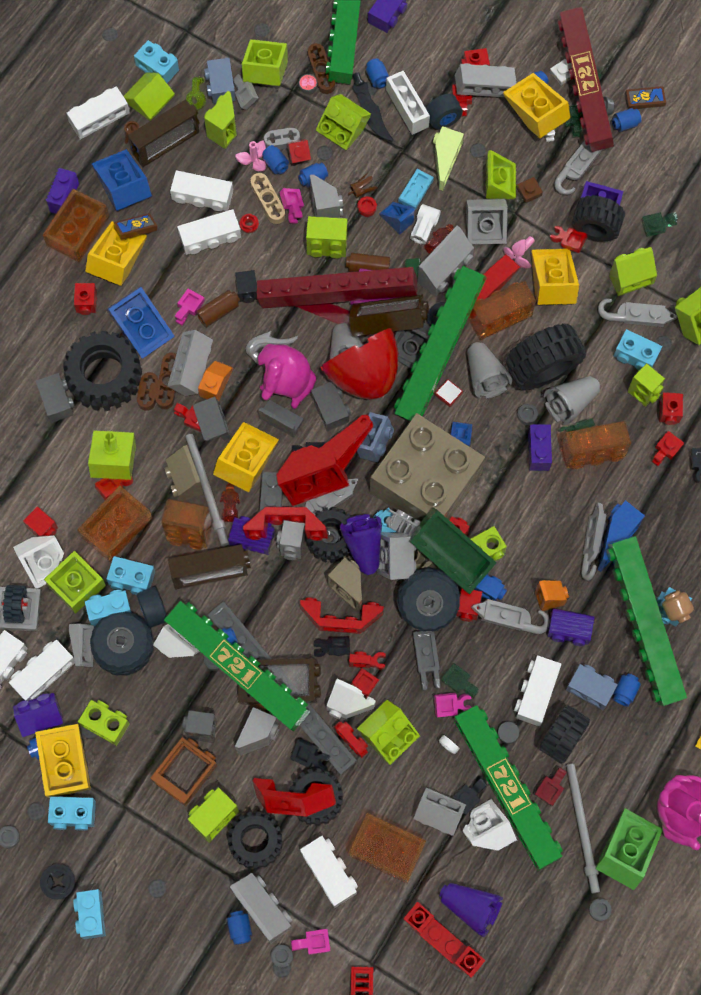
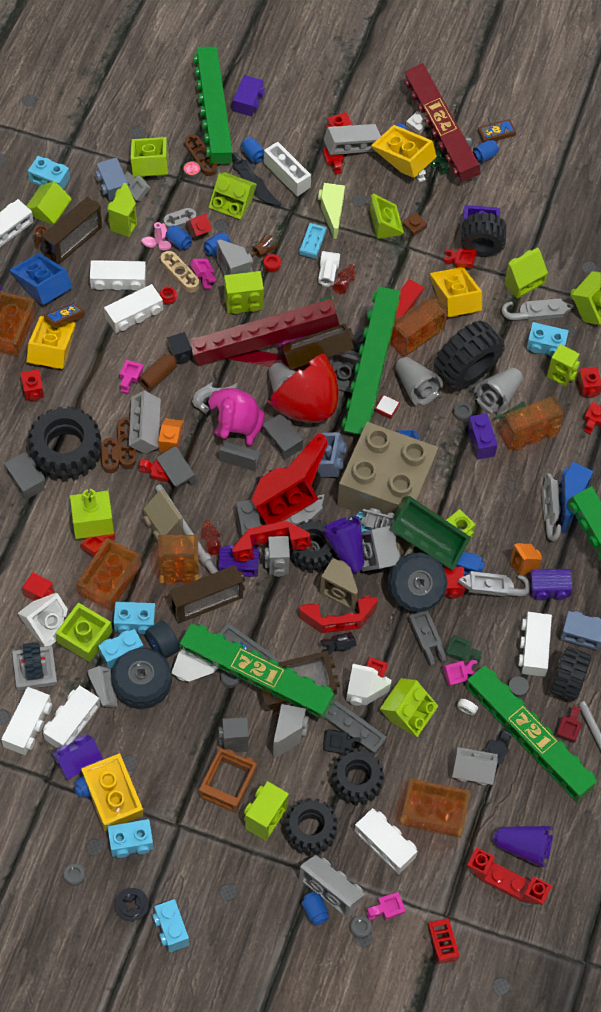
camera: 15 degrees left, 10 degrees down
(101, 726) = (139, 756): lime brick -> none
(140, 322) = (90, 394): blue slope -> none
(201, 100) = (91, 191): clear neon green plate -> none
(245, 457) = (215, 495): yellow slope -> none
(290, 803) = (337, 782): red slope -> none
(345, 731) = (381, 723): red plate -> none
(362, 660) = (372, 649): red plate -> none
(365, 261) = (280, 307): reddish brown brick -> none
(398, 216) = (303, 265): blue slope -> none
(444, 111) = (322, 170): black wheel -> none
(444, 261) = (356, 295): light grey slope -> none
(486, 221) = (383, 256): light grey slope -> none
(489, 827) = (524, 770): white slope -> none
(518, 250) = (419, 273): bright pink plant -> none
(576, 167) = (451, 197): light grey plate -> none
(656, 224) = (535, 233): clear green plate -> none

